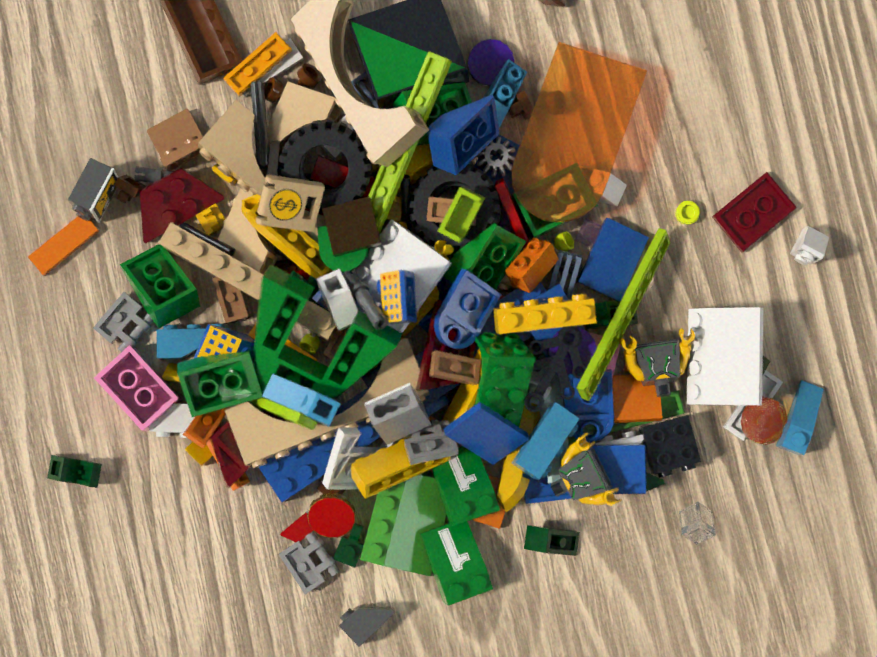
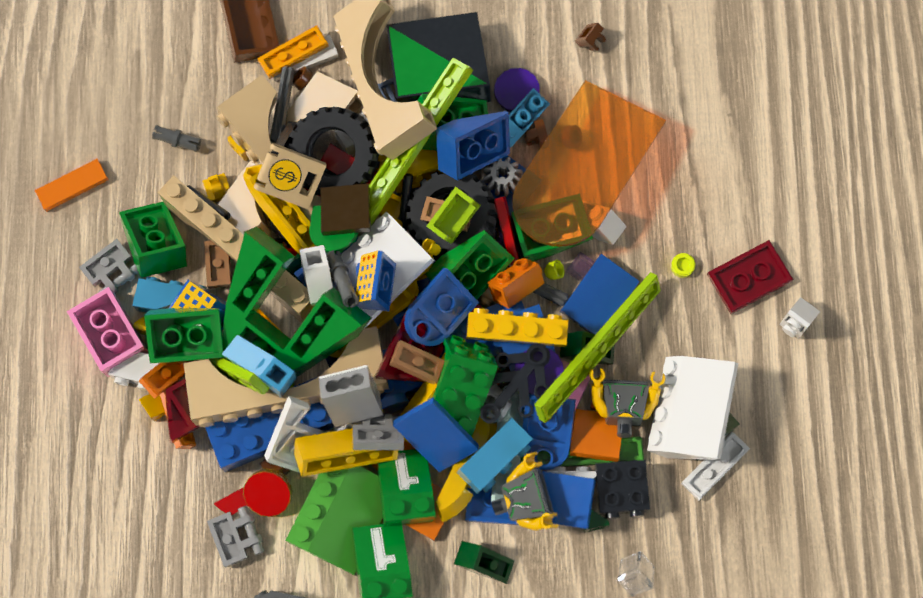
camera: 25 degrees right, 10 degrees down
(74, 471) = (27, 401): dark green slope -> none
(93, 190) = (110, 138): dark grey piece -> none
(128, 187) = (144, 144): reddish brown tile -> none
(174, 201) = (187, 159): dark red wing -> none
(176, 139) = (199, 108): medium nougat bracket -> none
(308, 75) = (339, 71): reddish brown tile -> none
(309, 343) = (284, 321): neon yellow hinge -> none
(349, 548) = (278, 530): dark green plate -> none
(570, 256) = (559, 299): sand blue tile -> none
(764, 422) = (723, 483): tile -> none
(801, 419) = (761, 489): dark azure slope -> none

